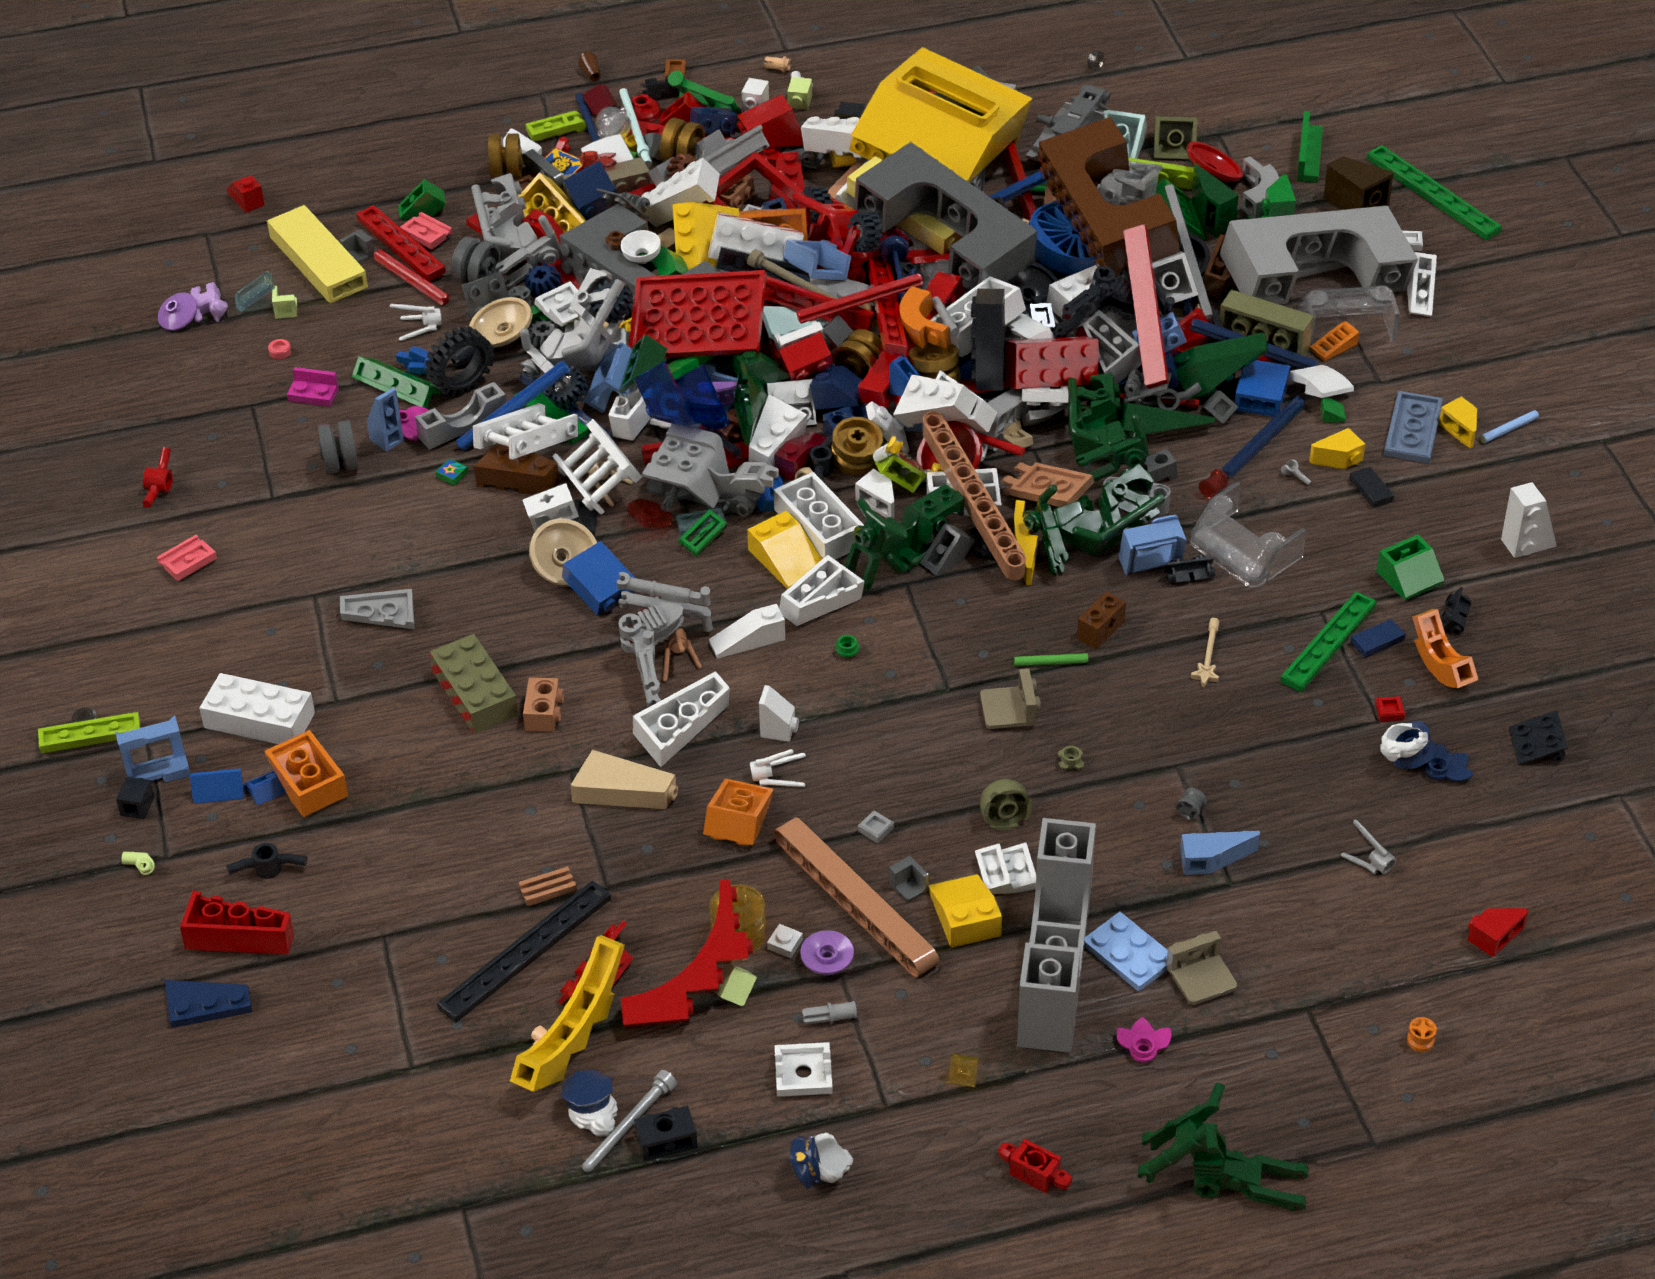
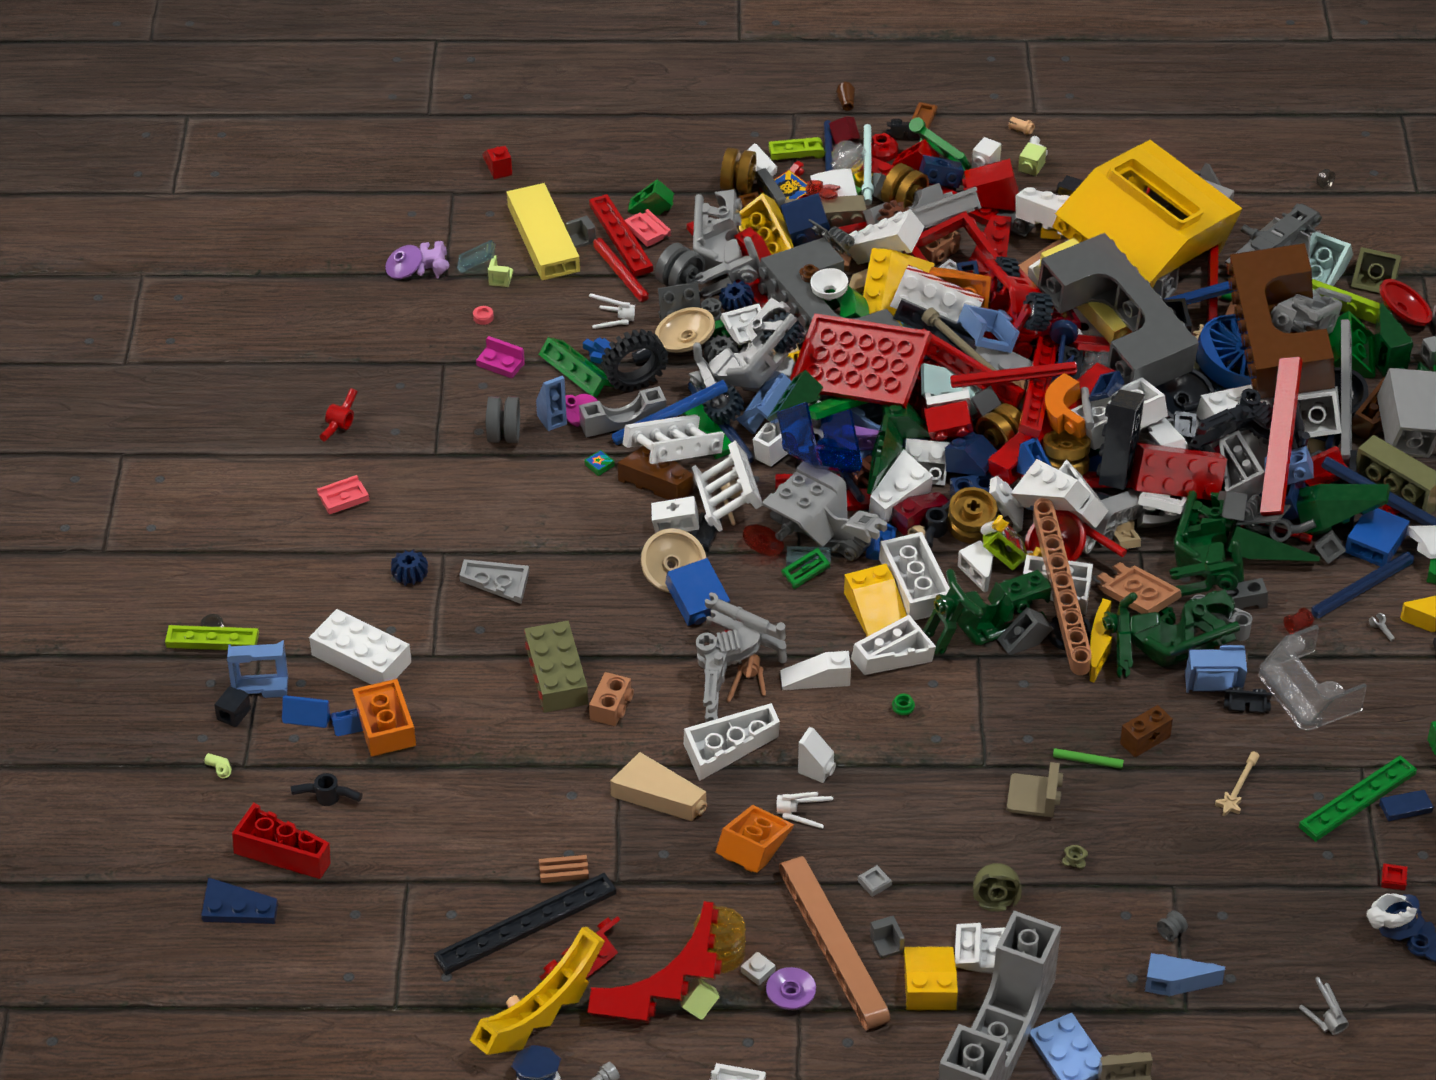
camera: 15 degrees right, 0 degrees up
(283, 616) = (409, 567): none -> dark blue gear
(829, 1013) = (775, 1045): light grey axle -> none
(958, 290) = (1106, 385): none -> dark blue slope
(1119, 382) = (1233, 505): none -> dark grey panel

